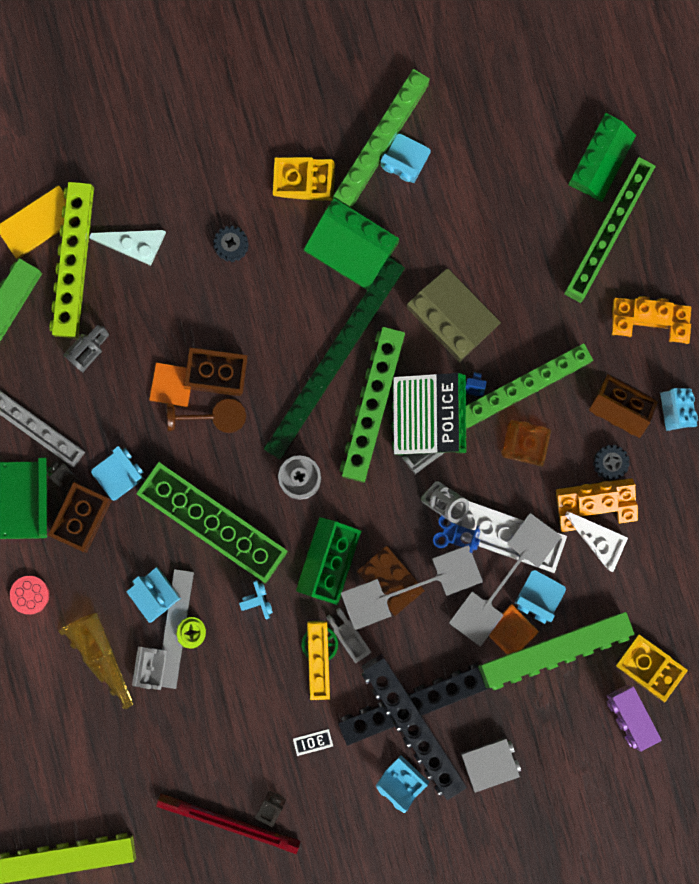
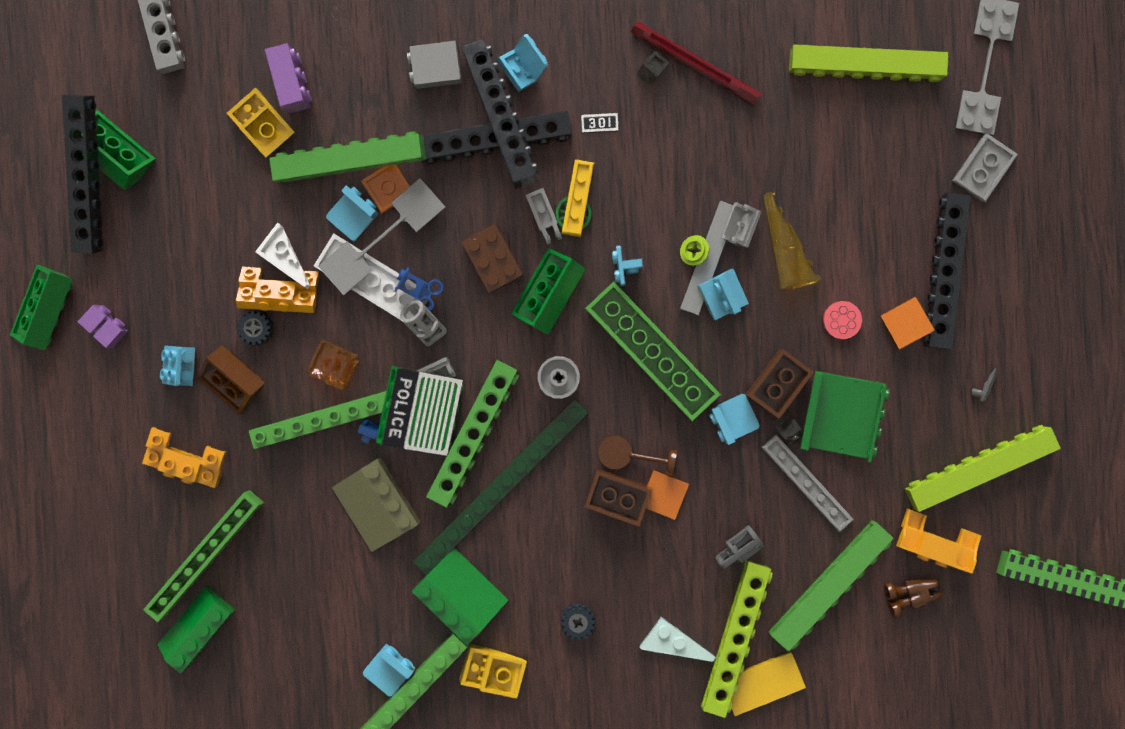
camera: 165 degrees left, 5 degrees up
(369, 604) = (517, 239): light grey hinge -> none

